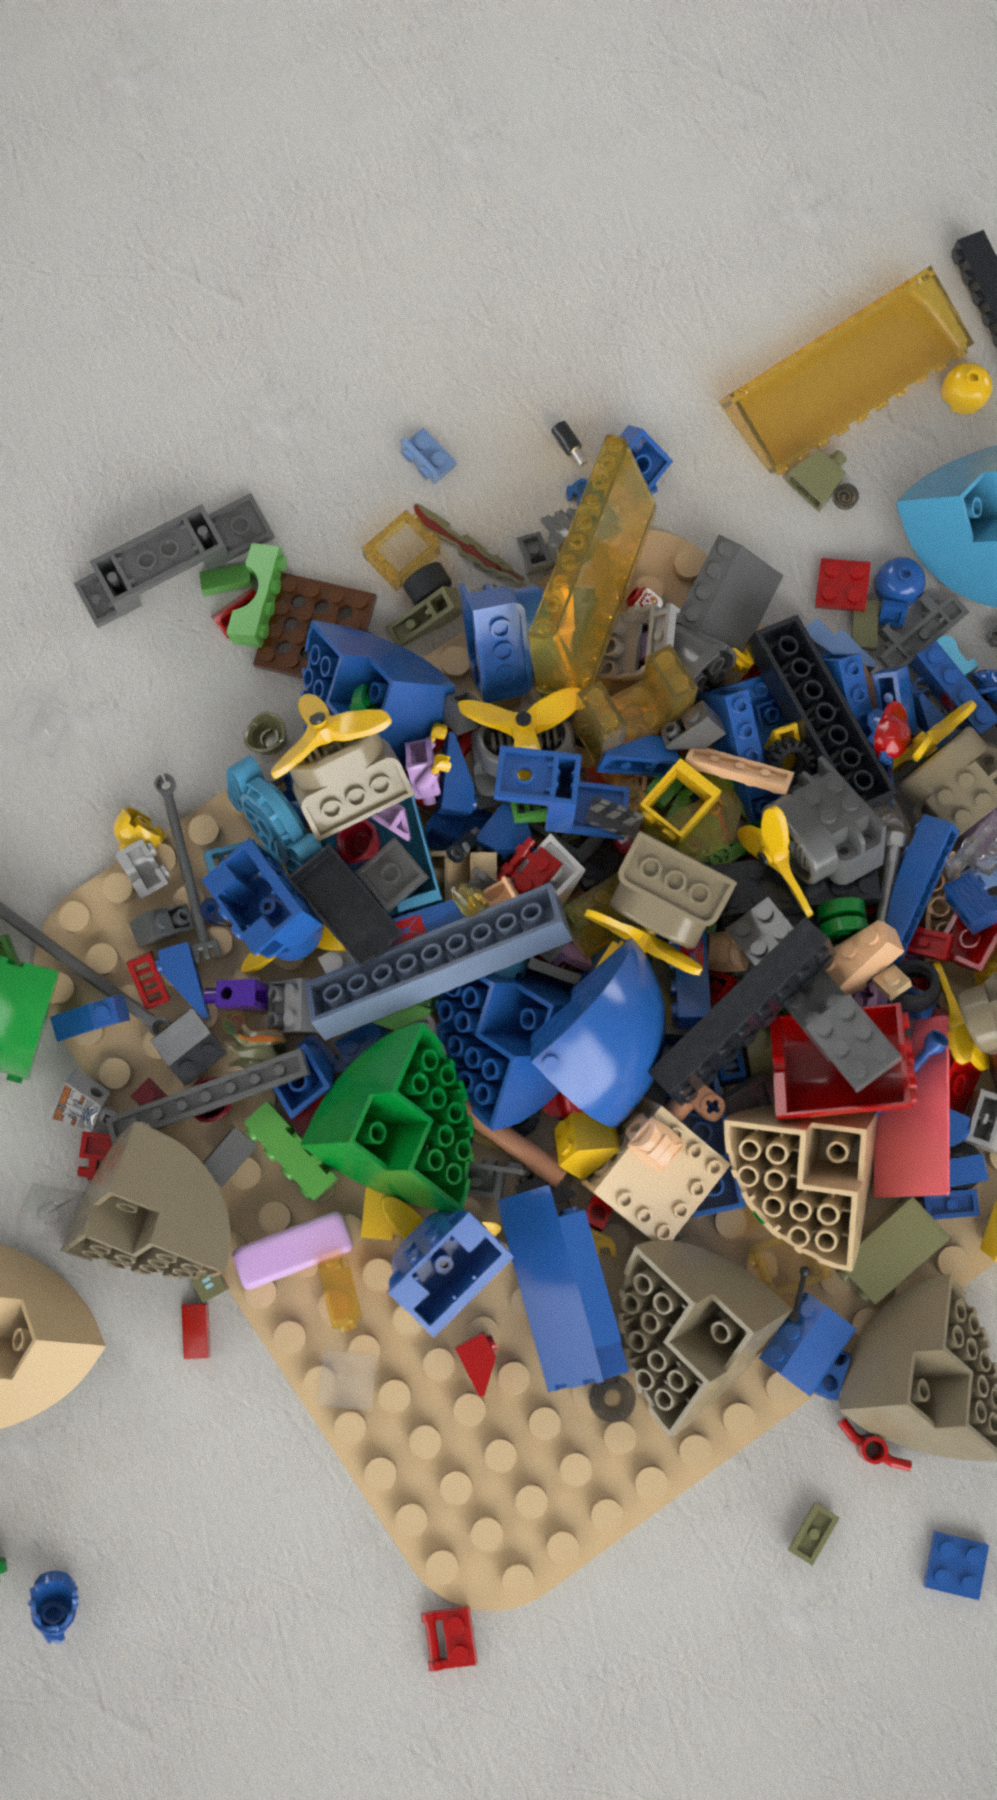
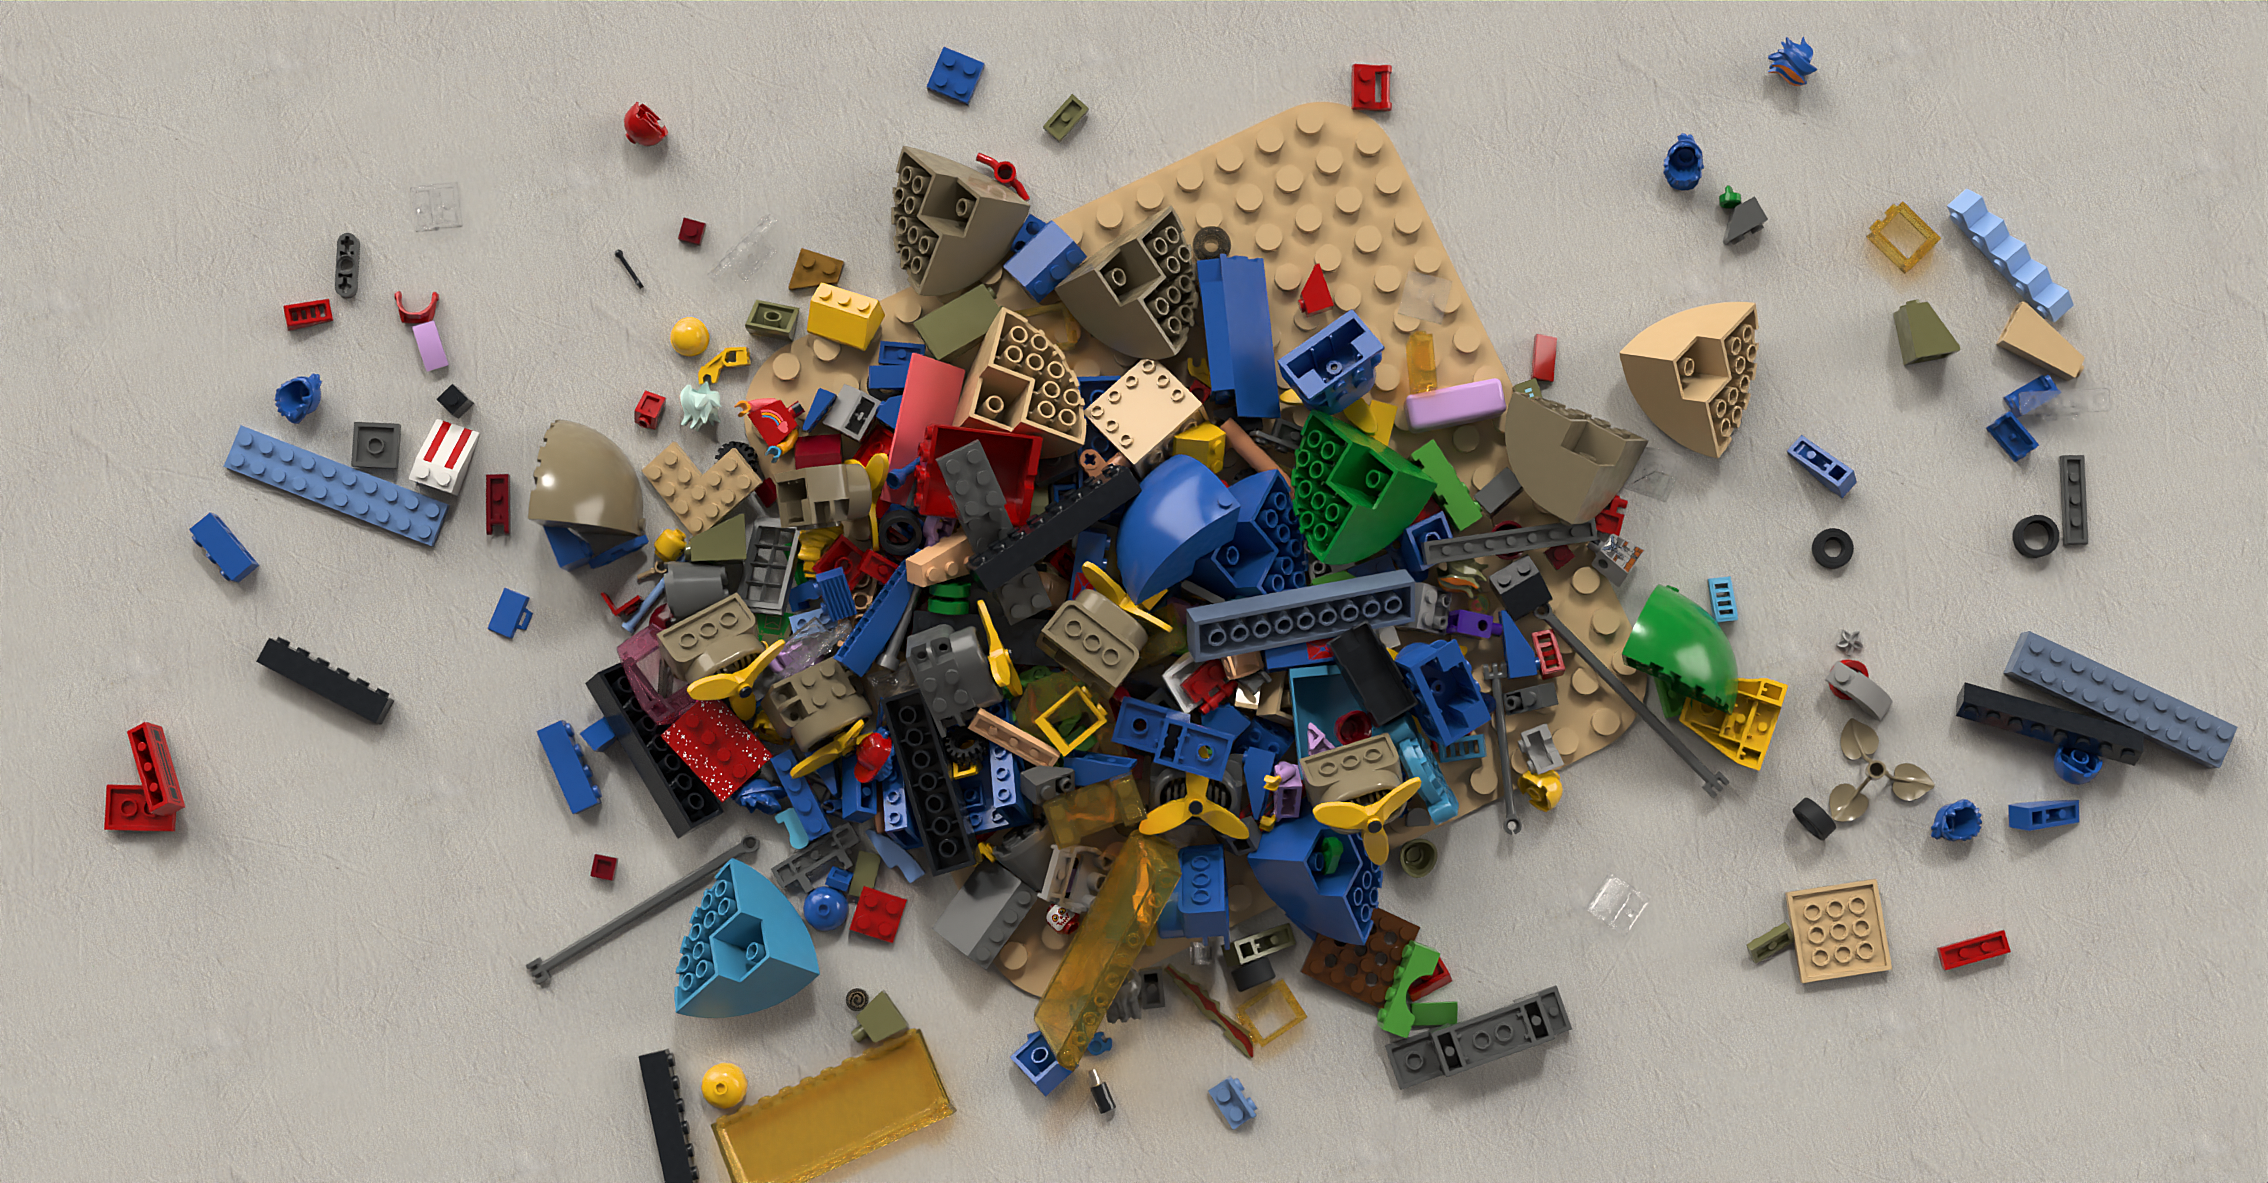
camera: 170 degrees left, 5 degrees up
(90, 1017) = (1600, 627): blue slope -> none
(392, 874) = (1327, 698): dark grey tile -> none
(463, 845) = (1261, 717): black piece -> none
(469, 900) = (1265, 662): clear yellow piece -> none
(614, 818) = (1130, 713): clear smoke tile -> none
(654, 1142) = (1145, 436): light nougat piece -> none
(794, 1316) = (1052, 283): black hinge -> none
(892, 982) = (920, 536): tan plate -> none

